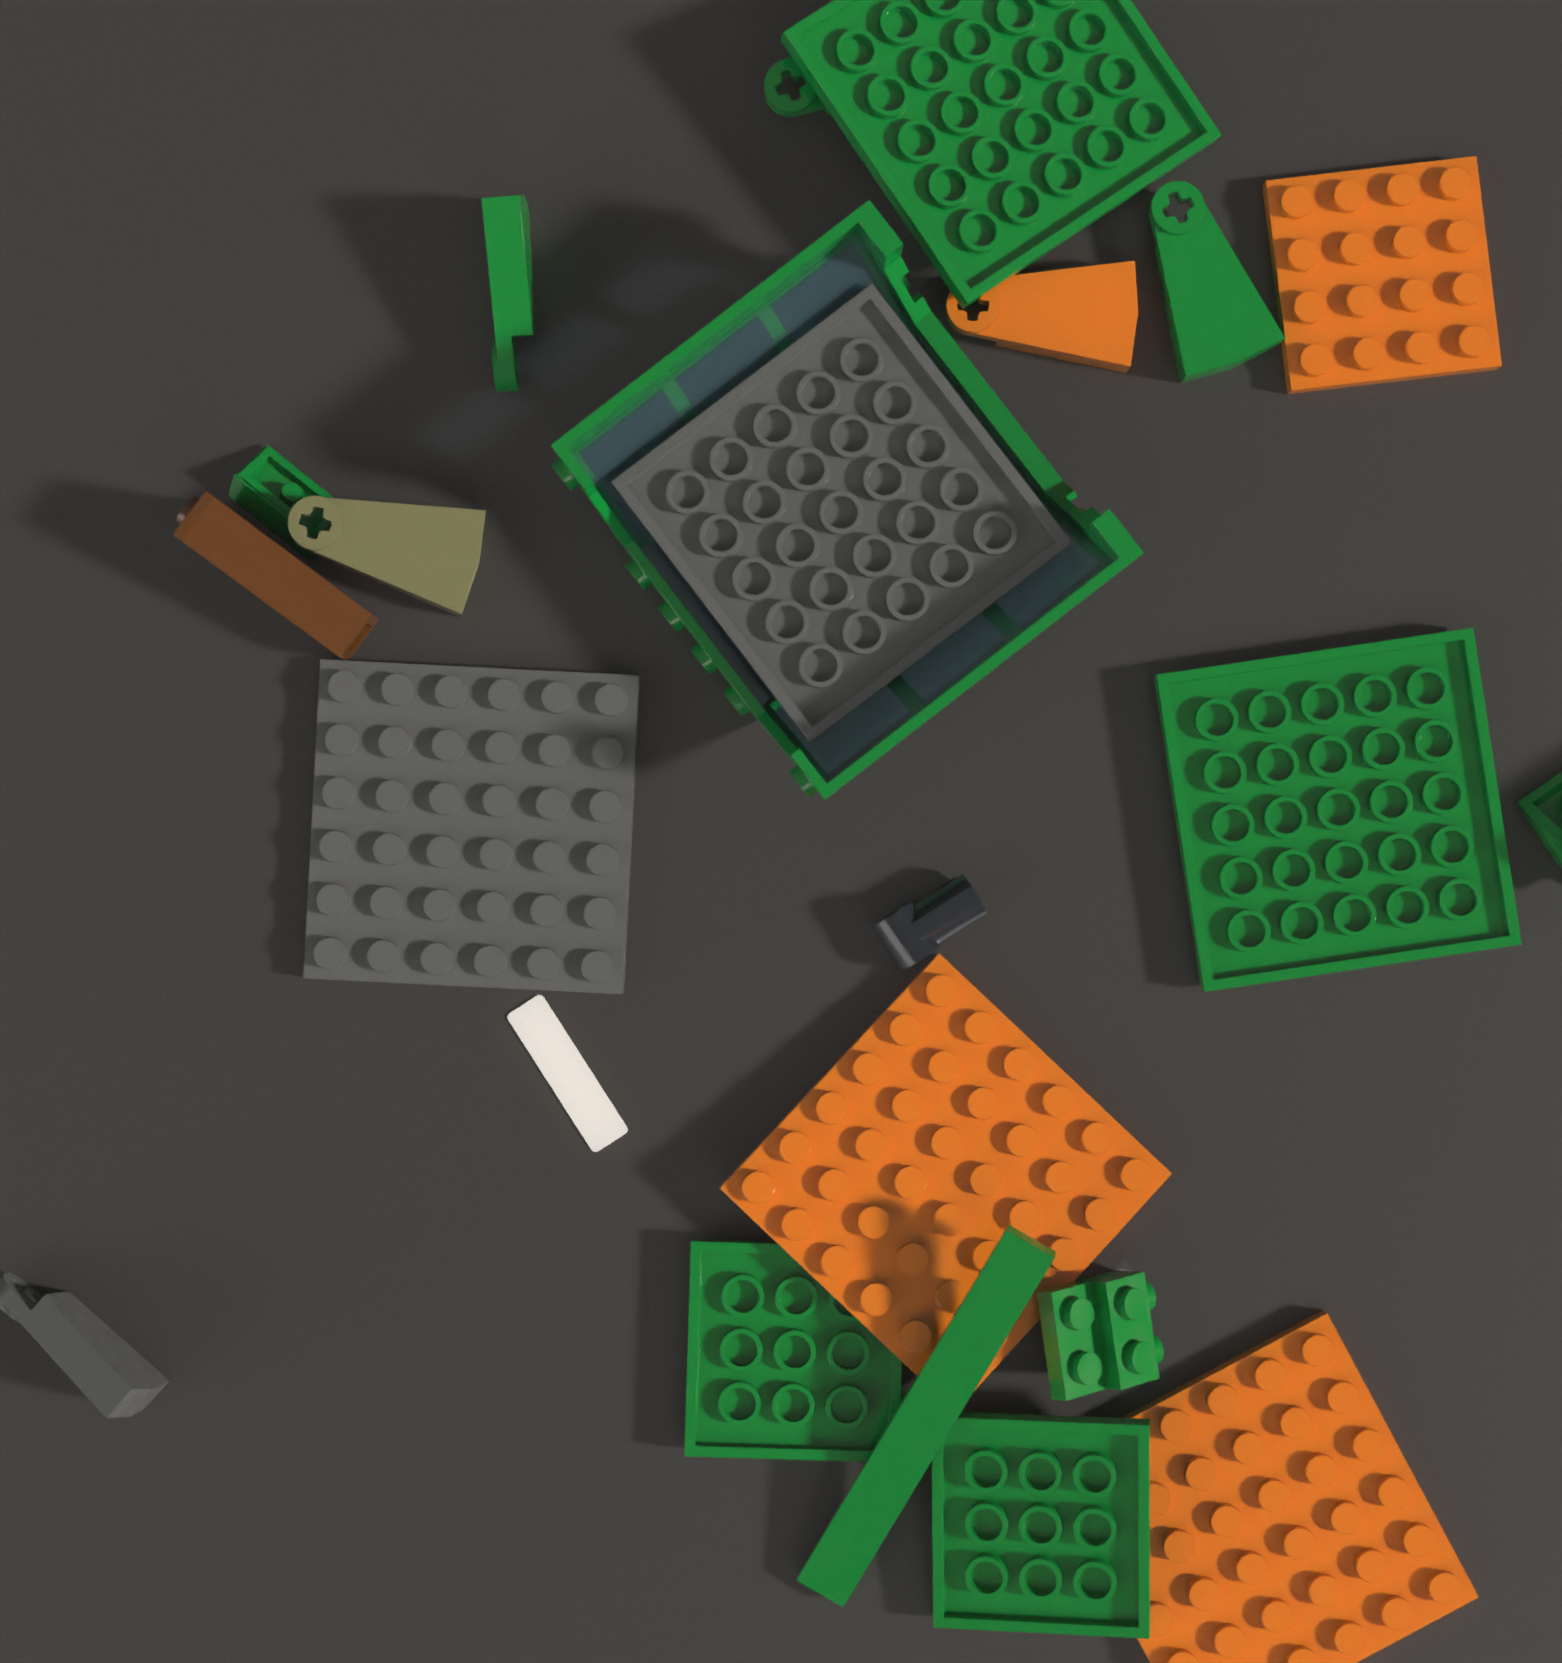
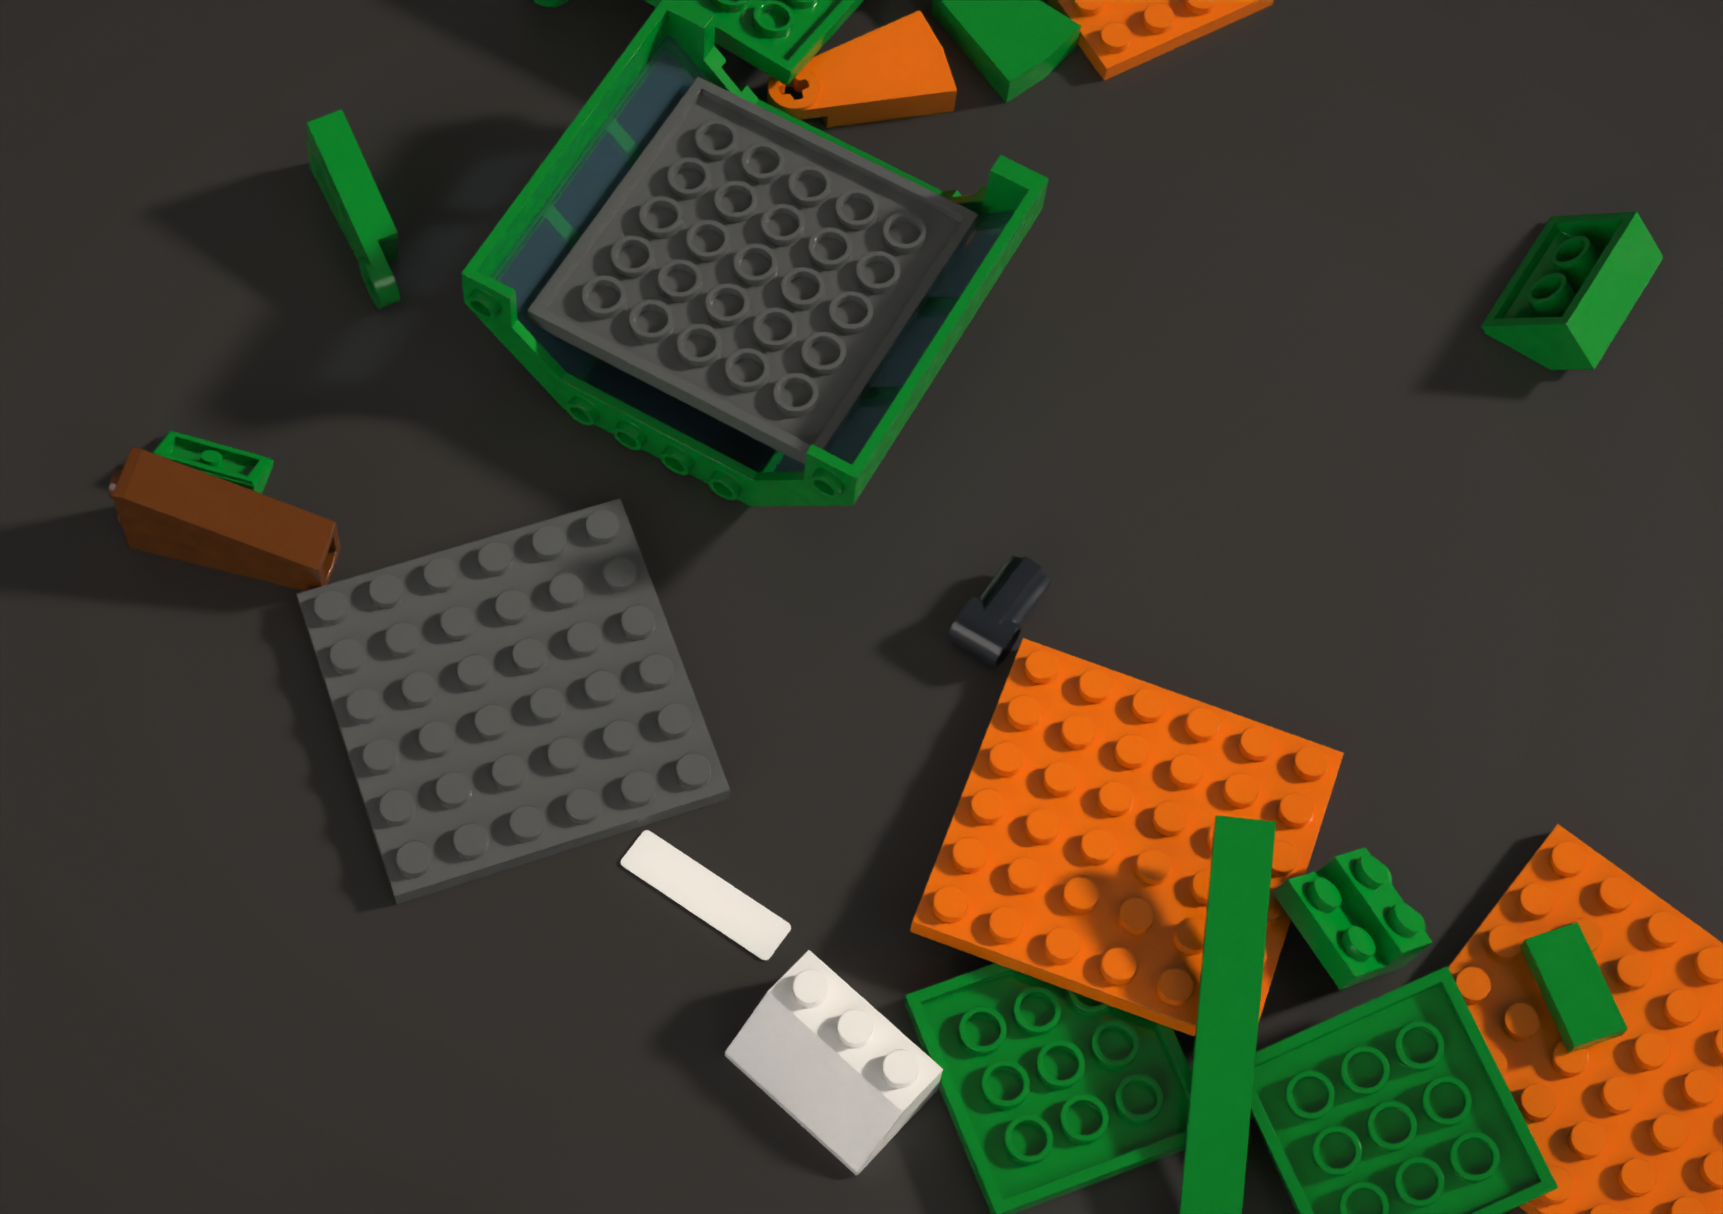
camera: 25 degrees left, 25 degrees down
(403, 546) = (336, 462): olive piece -> none
(608, 1273) = (834, 1062): none -> white slope
(1257, 1470) = (1573, 987): none -> green tile
(1337, 809) = (1325, 386): green plate -> none

